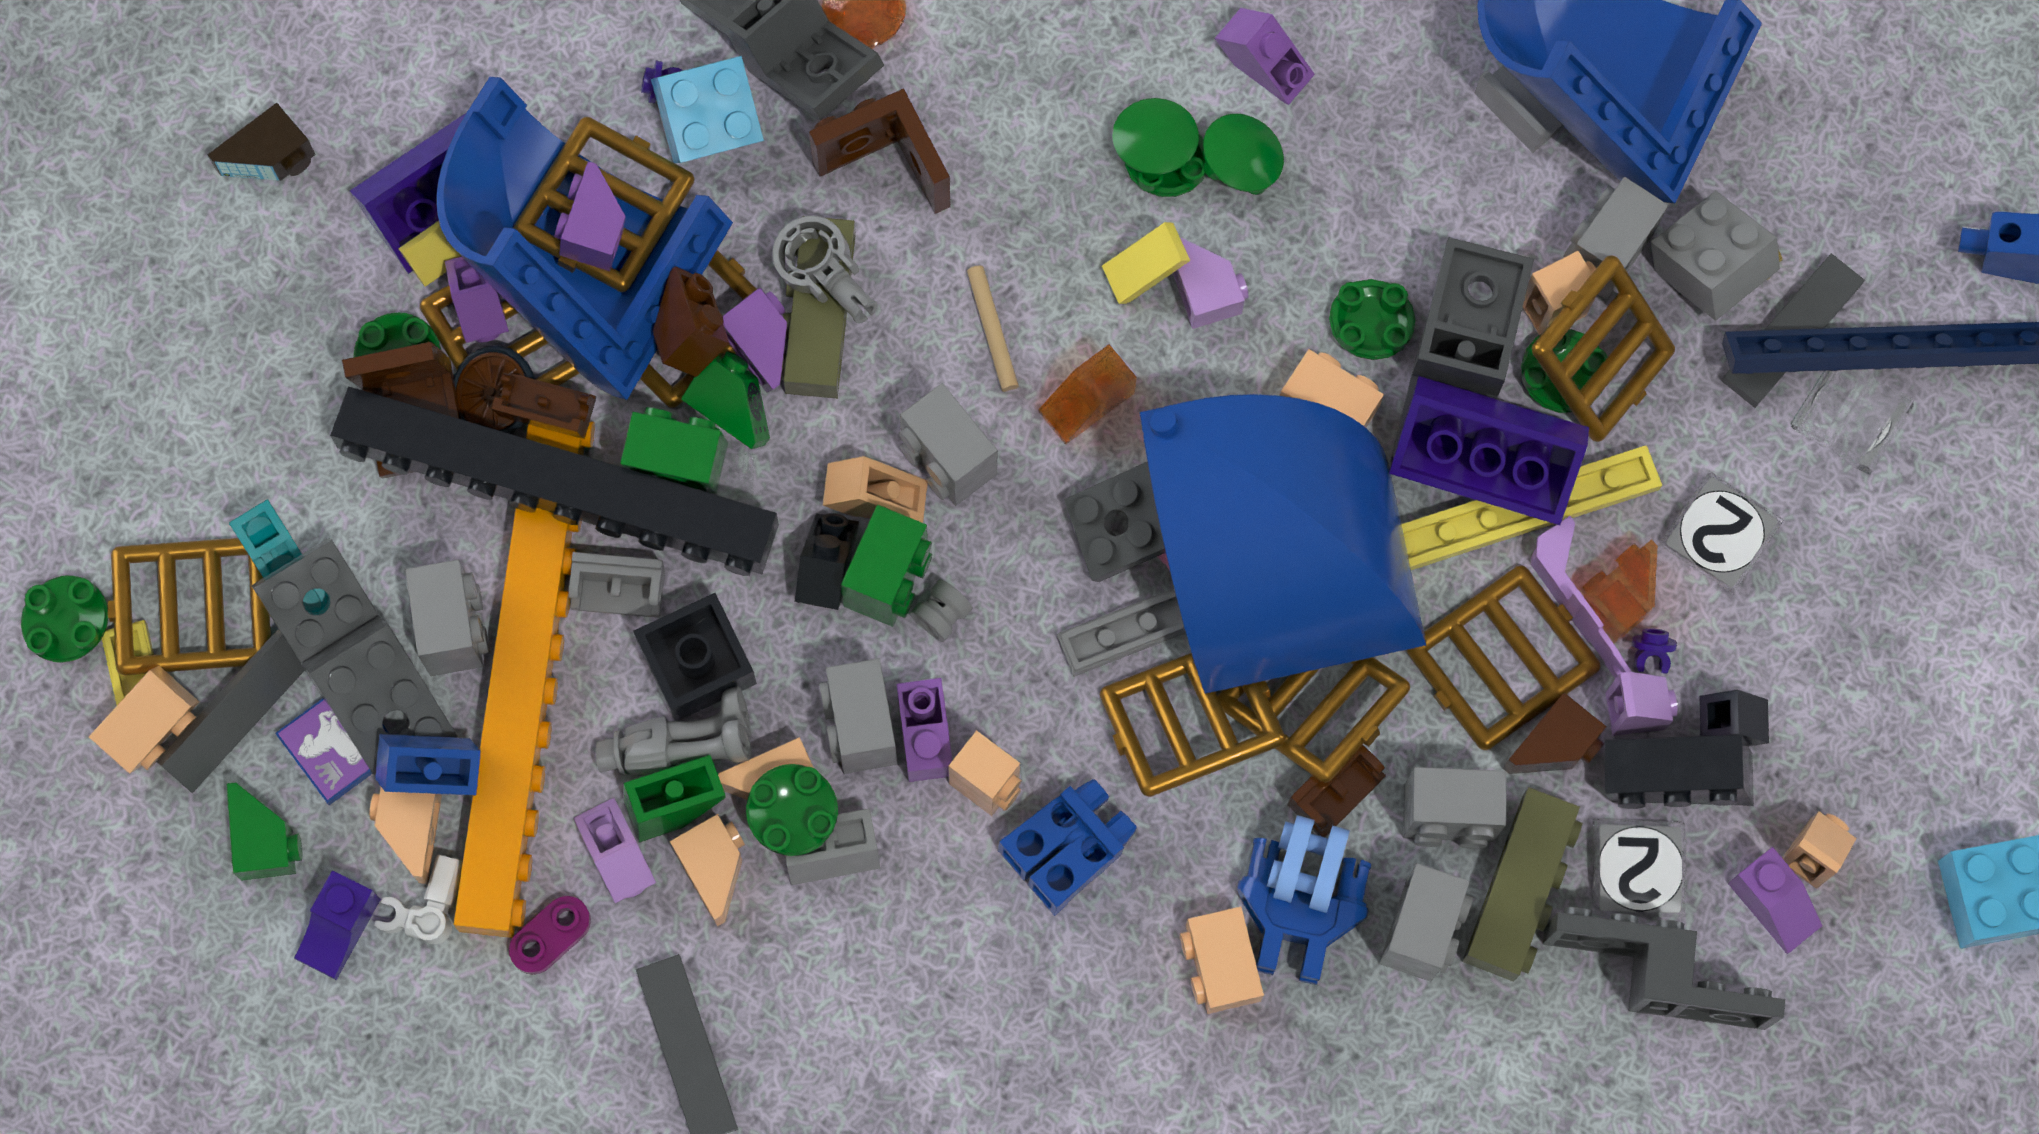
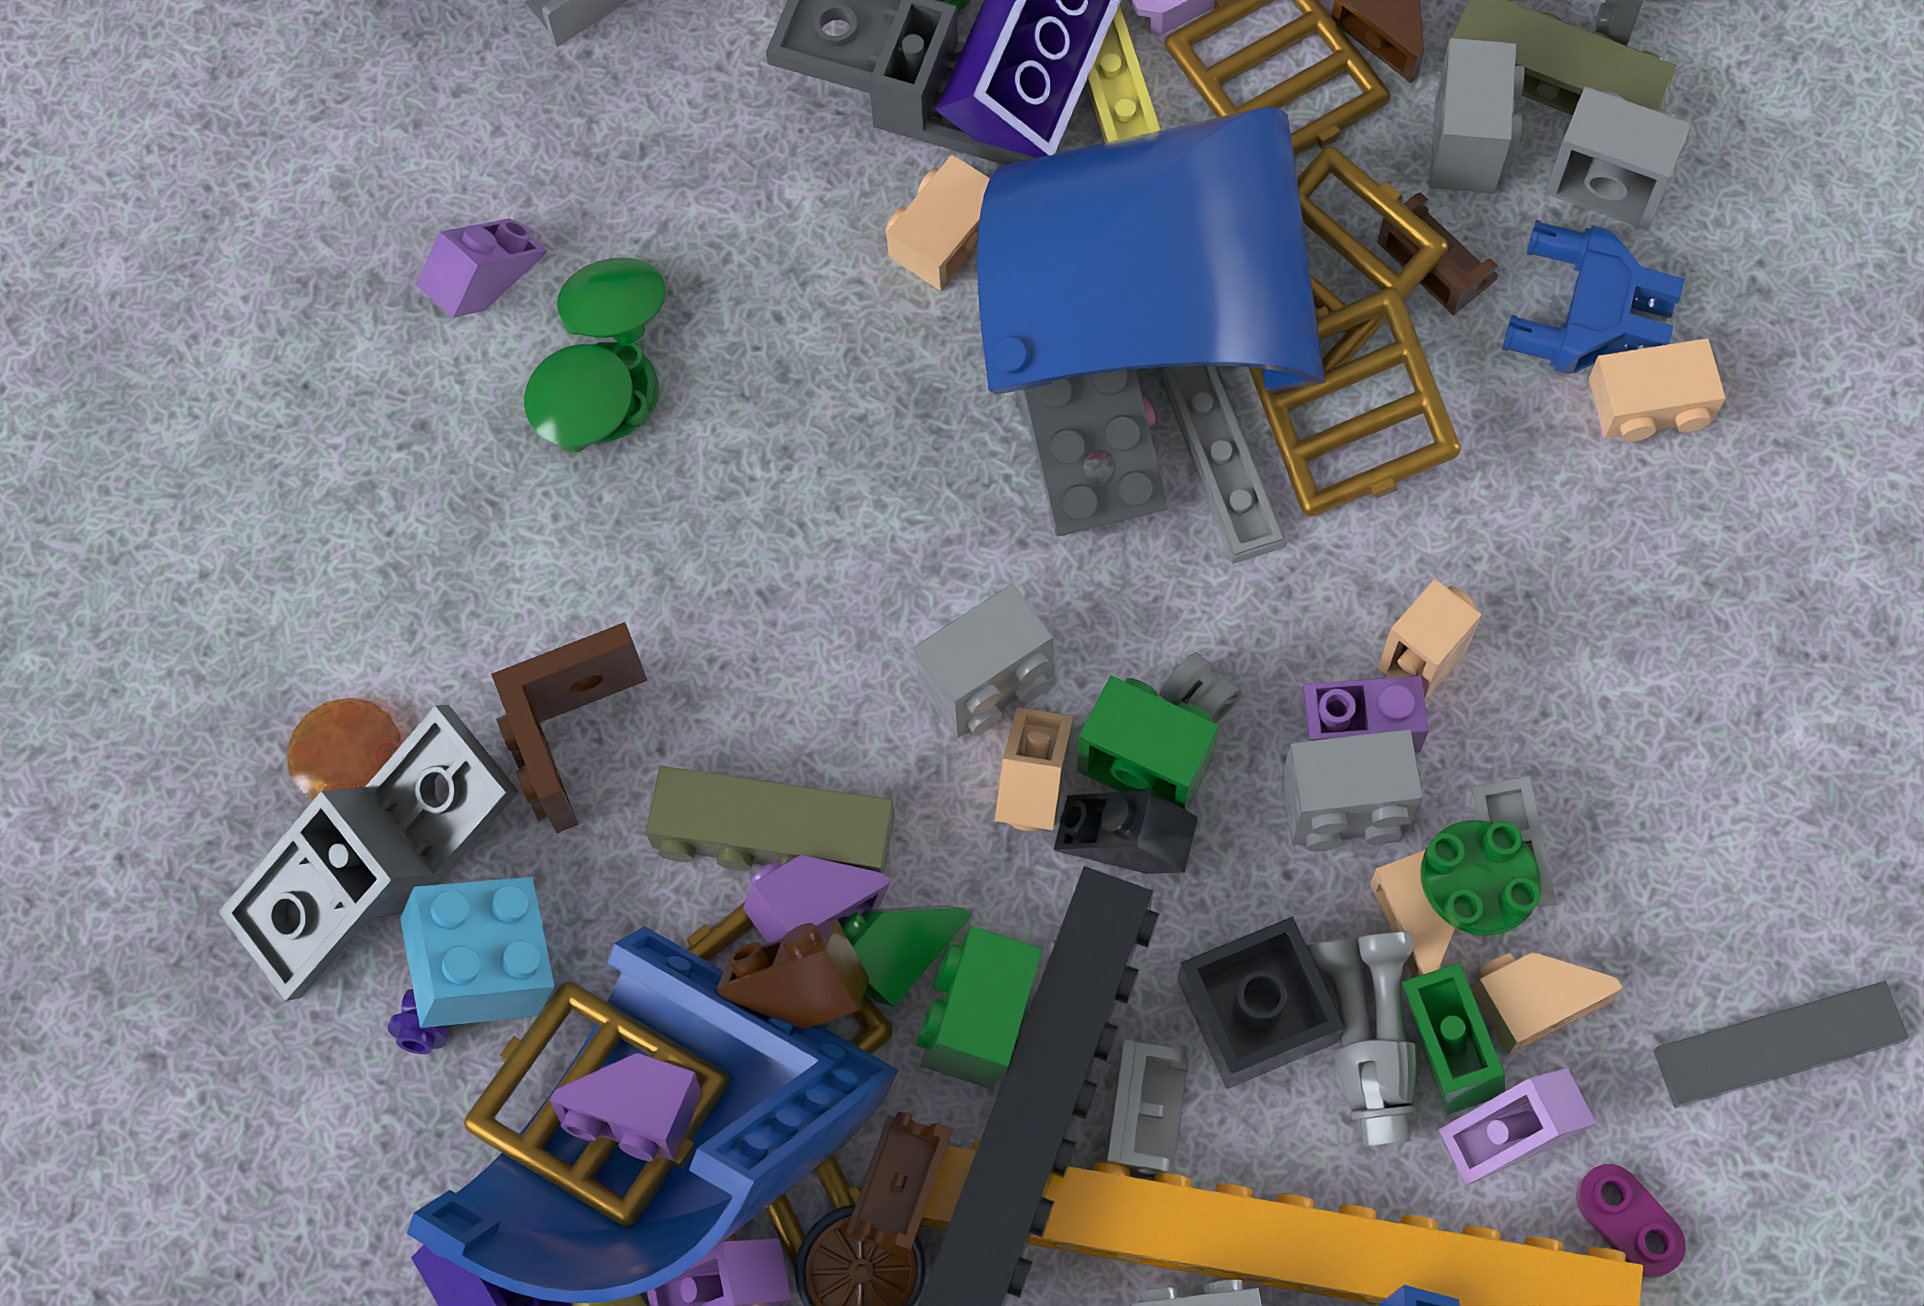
camera: 80 degrees left, 5 degrees down
(828, 272) = (762, 775): light grey pin -> none
(992, 328) = (815, 615): tan bar -> none
(1083, 841) = (1513, 558): blue hips -> none
(1089, 394) = (922, 494): clear orange slope -> none
(1146, 263) = (752, 415): light yellow tile -> none
(1209, 287) = (779, 355): lavender slope -> none
(1286, 875) = (1548, 271): light blue brick -> none
(1372, 318) = (843, 173): green dish -> none

